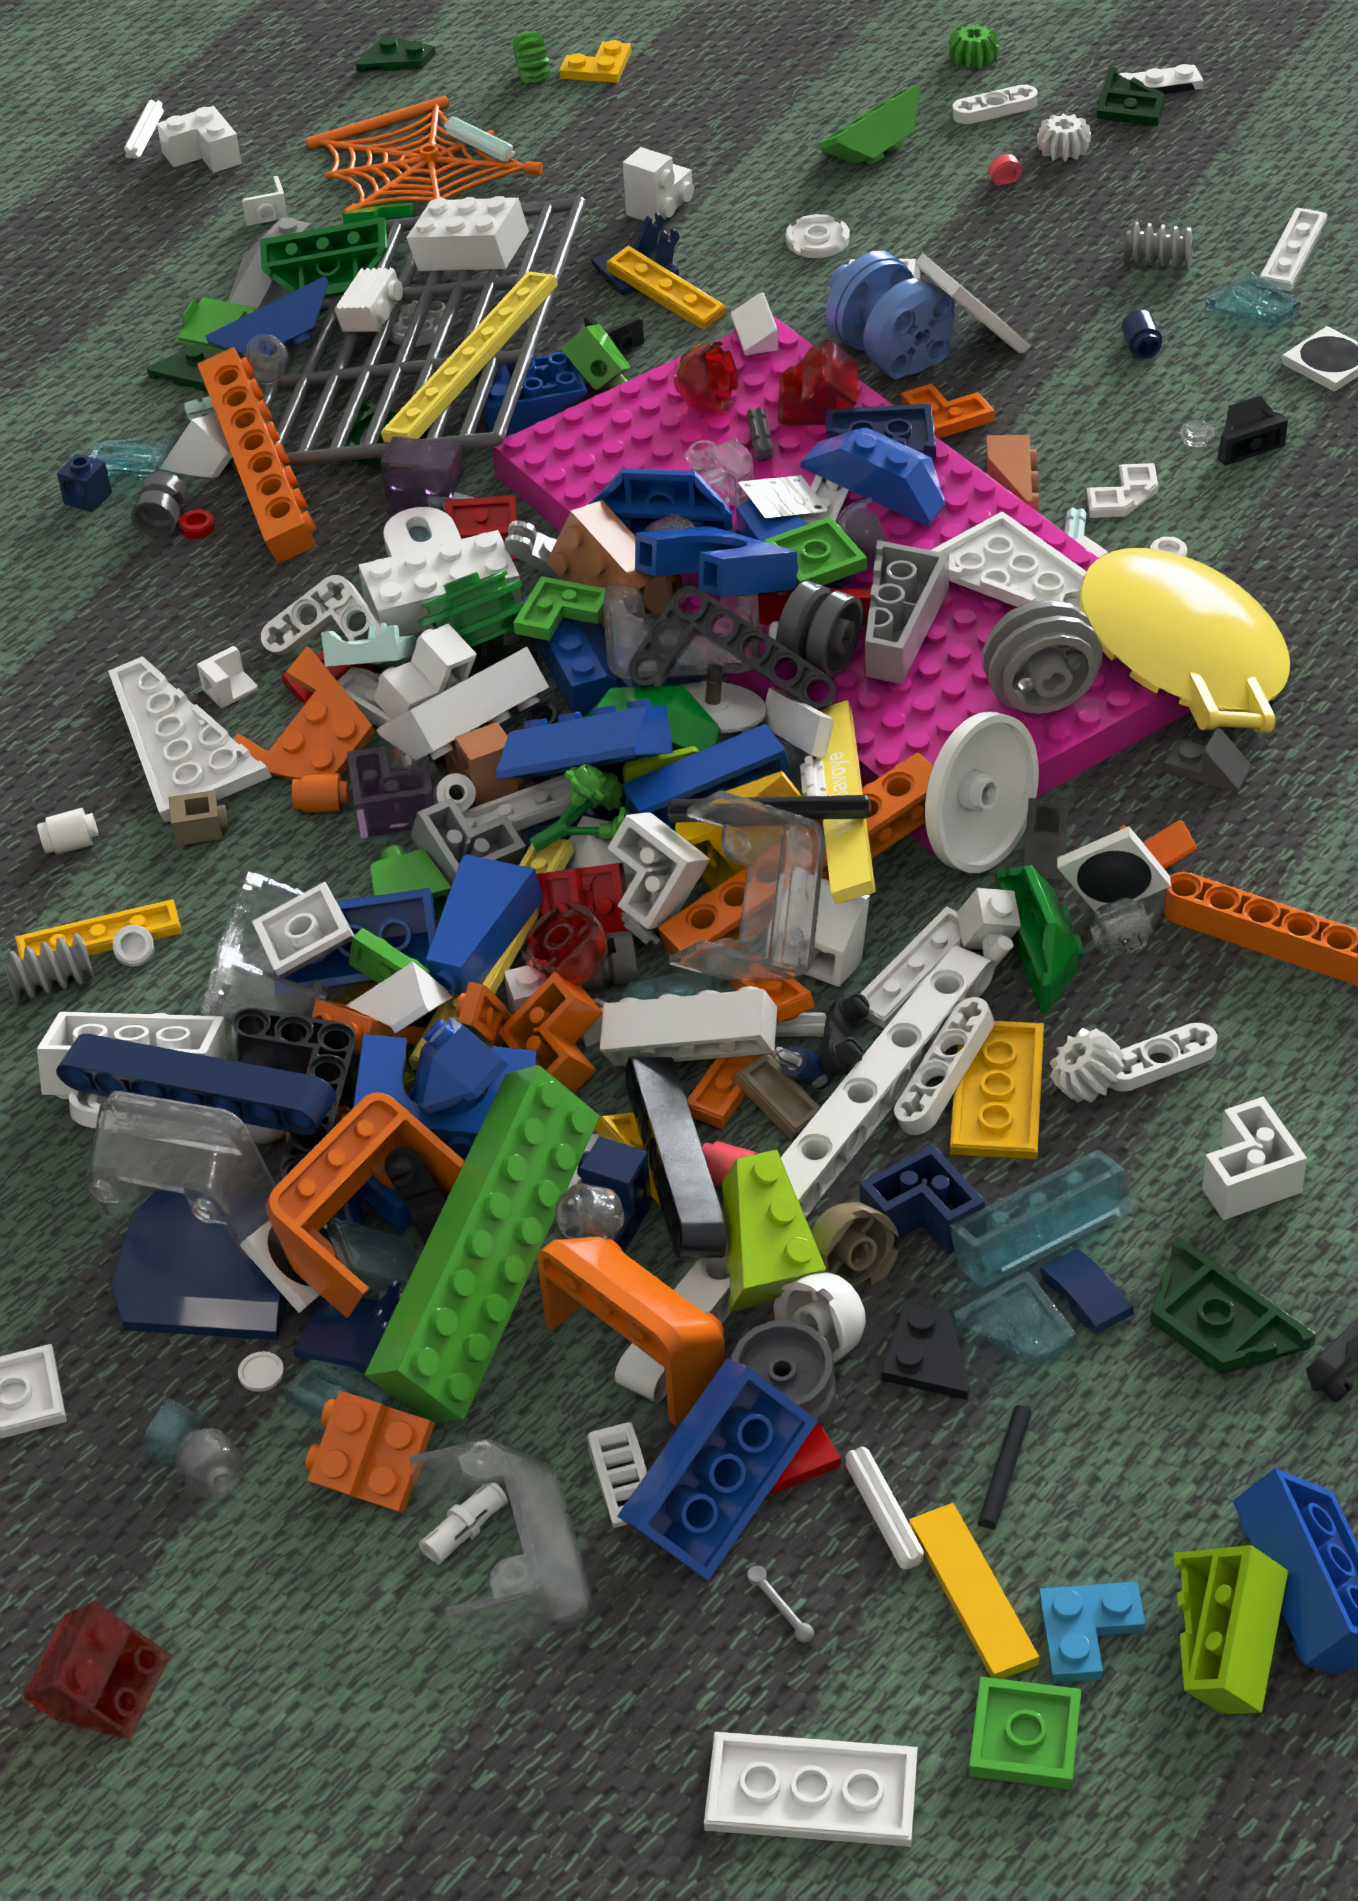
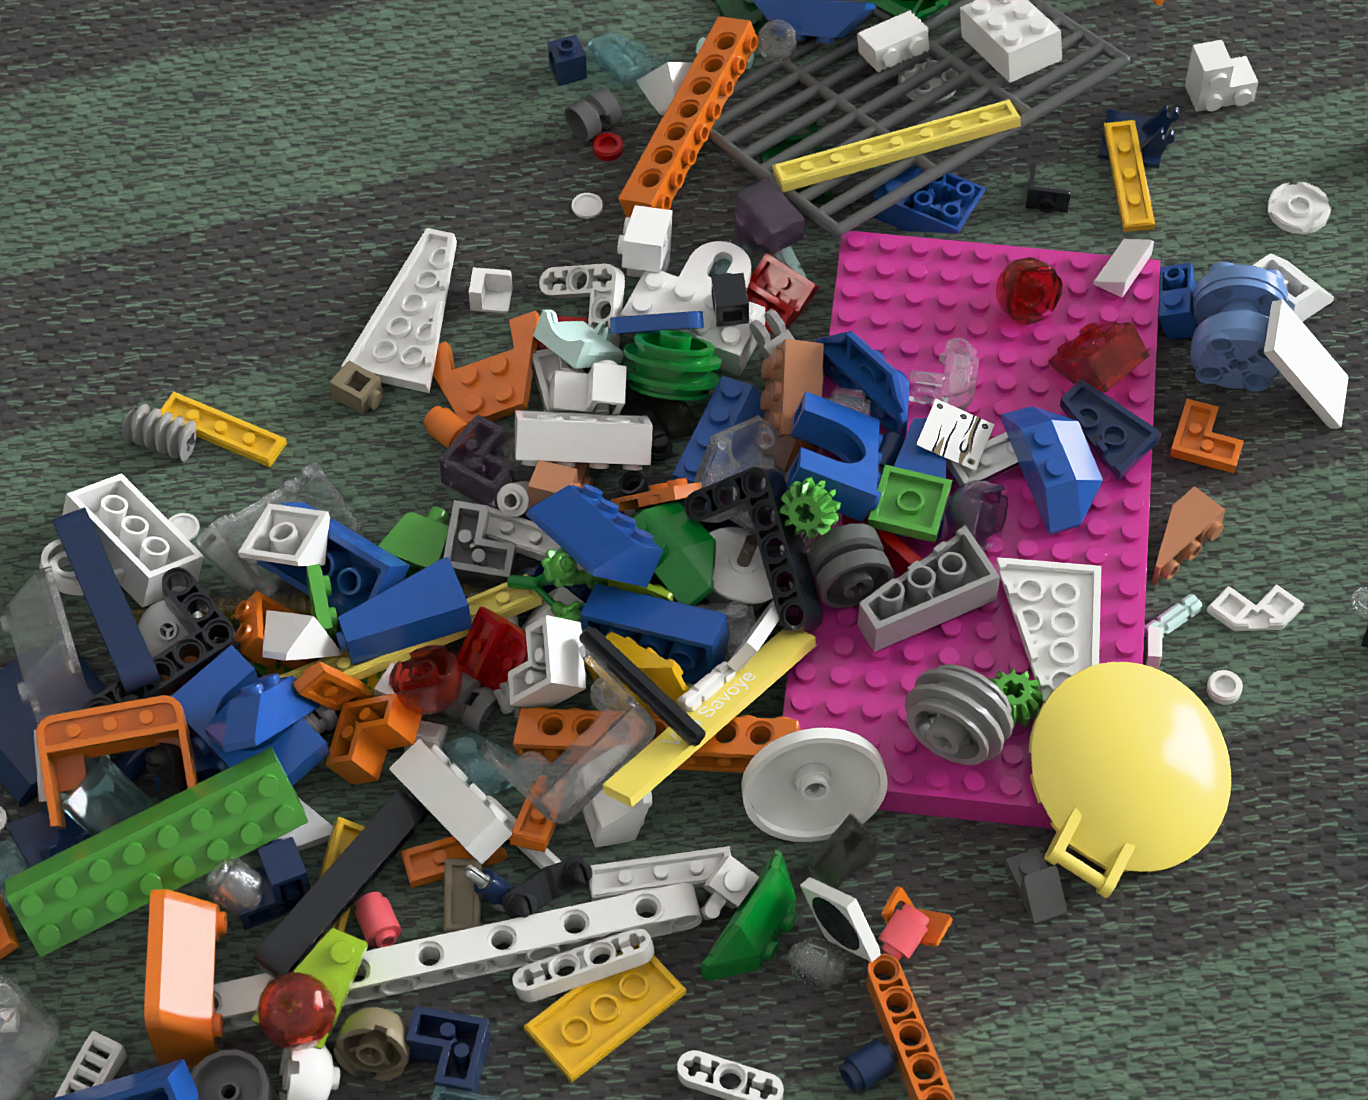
camera: 40 degrees right, 10 degrees up
(67, 831) = (278, 336): white brick -> none
(133, 945) = (227, 455): white tile -> none
(231, 574) = (587, 205): none -> white piece
(337, 546) = (646, 241): none -> white brick
(424, 589) = (656, 322): none -> blue beam
(471, 532) = (730, 299): none -> black brick
(558, 599) = (717, 398): bright green plate -> none
(590, 350) = (997, 208): bright green torso -> none
(600, 682) = (658, 494): none -> orange wing
(760, 433) = (1020, 363): dark grey axle -> none
(762, 573) = (822, 510): none -> bright green gear
(782, 1243) = (310, 1017): none -> clear red cylinder
(814, 325) = (1176, 300): none -> blue slope
(1087, 1065) = (664, 1046): white gear -> none
(1166, 846) = (903, 932): none -> coral brick
(1251, 963) = (868, 1065): none -> dark blue brick

